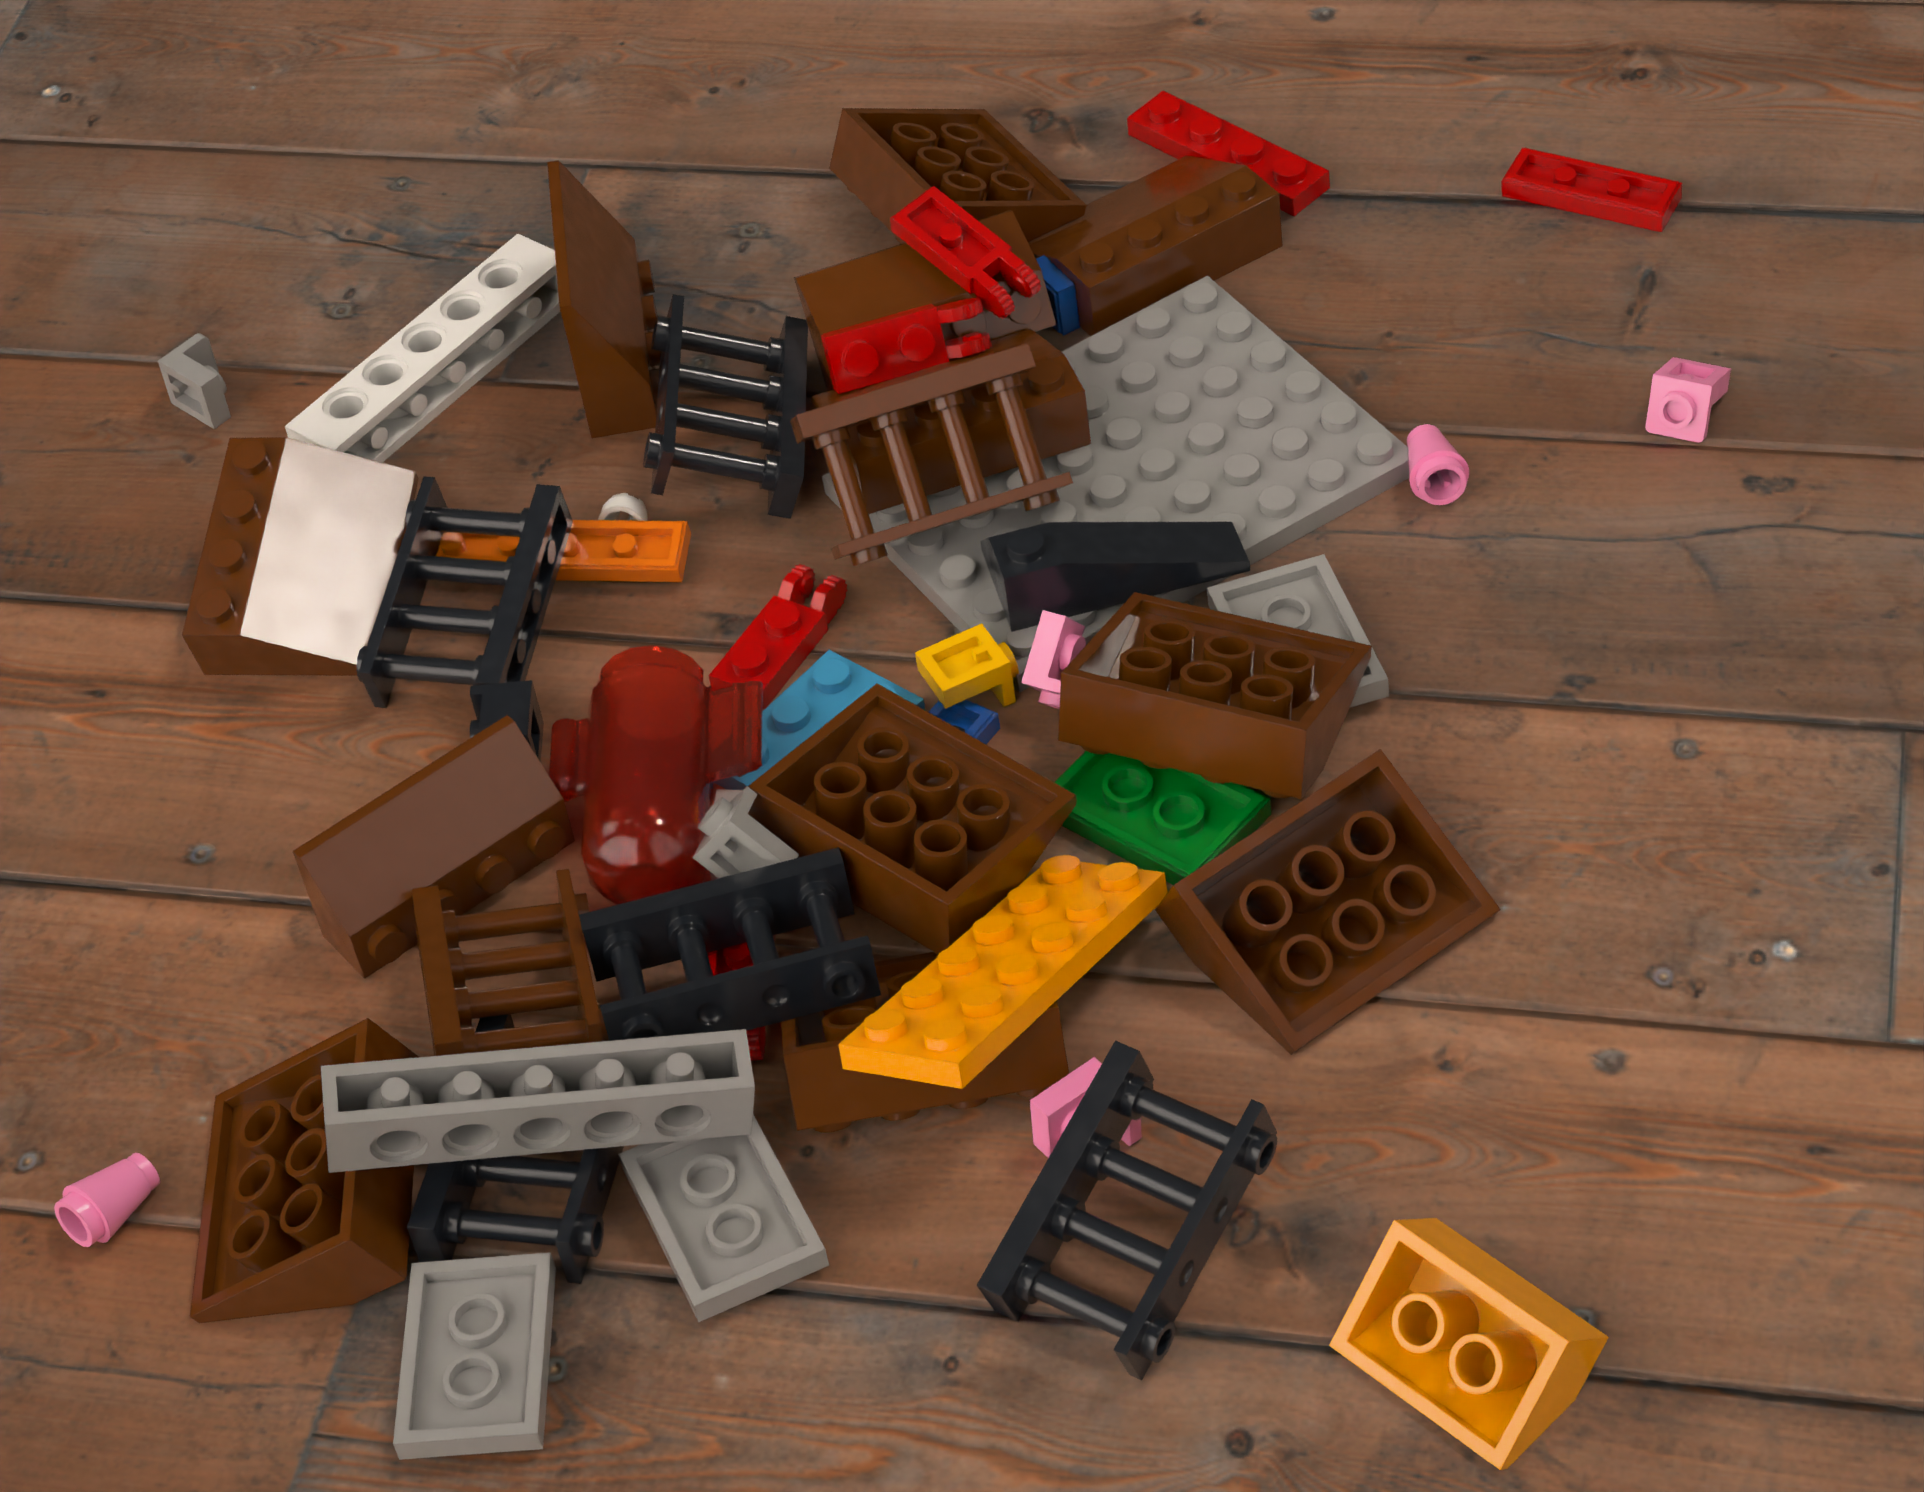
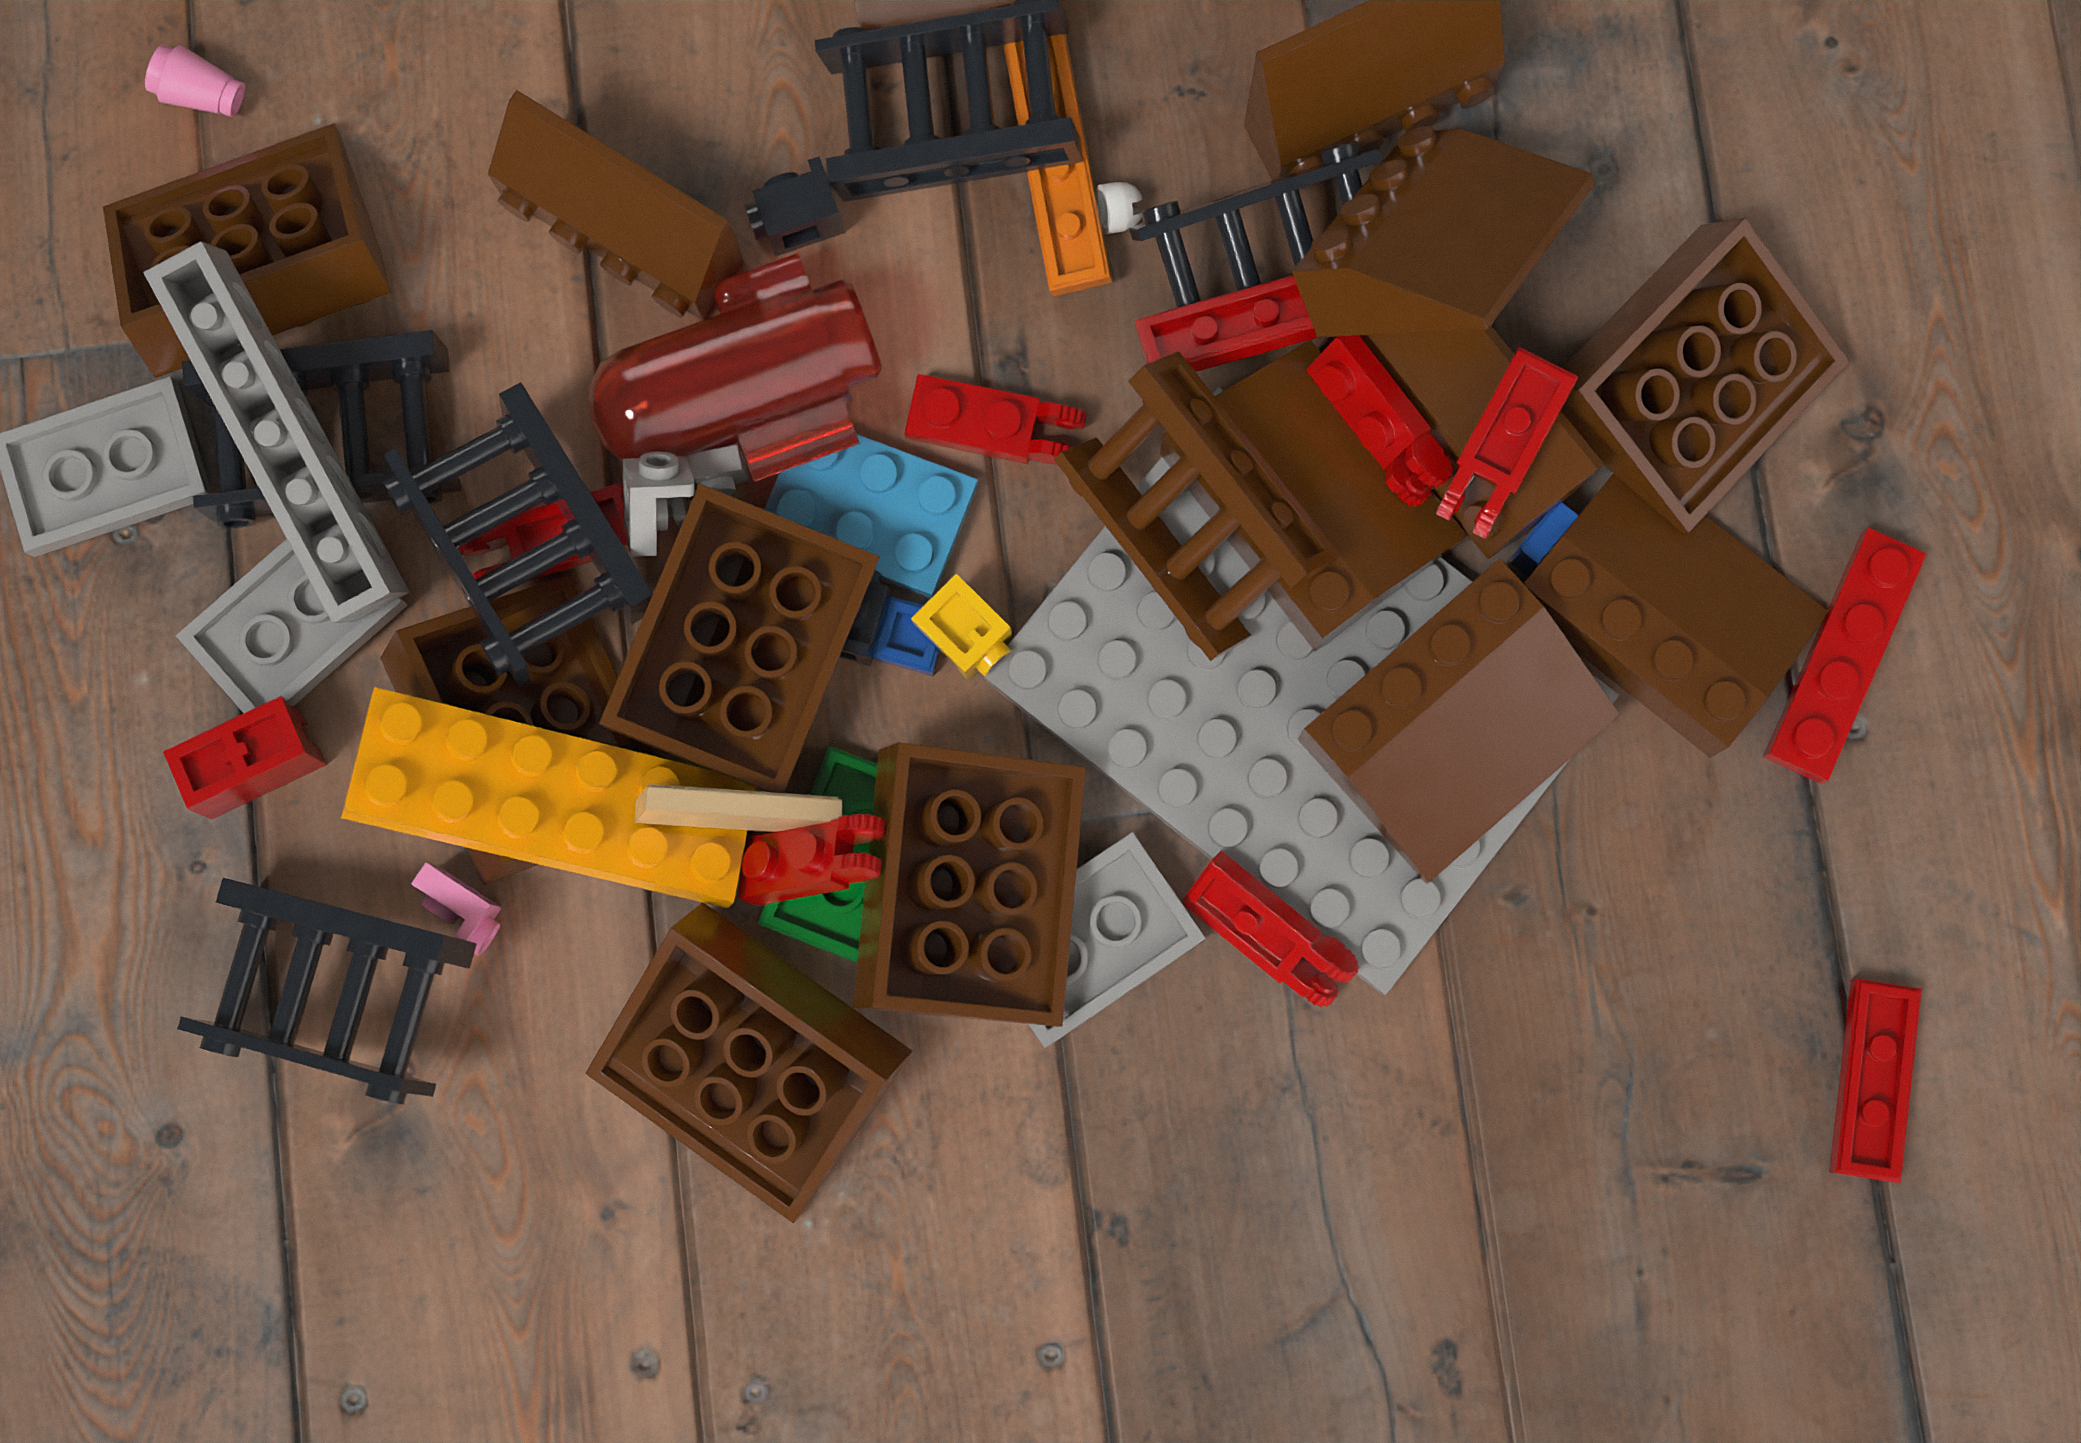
camera: 70 degrees right, 35 degrees up
(447, 968) = (462, 277): reddish brown fence -> none
(771, 453) = (1229, 326): none -> red tile
(773, 260) = (1437, 236): none -> reddish brown slope
(853, 1262) = (243, 759): none -> red hinge
(1053, 648) = (980, 714): bright pink bracket -> none
(1076, 828) = (733, 808): none -> tan tile
(1101, 564) = (1128, 703): black wedge -> none
(1146, 787) = (809, 859): none -> red hinge
(1186, 353) = (1460, 721): none -> reddish brown slope
(1327, 516) = (1270, 931): none -> red hinge
(1435, 466) = (1376, 1015): bright pink cone -> none
(1466, 1340) = (284, 1315): light orange slope -> none
(1684, 397) = (1543, 1261): bright pink bracket -> none

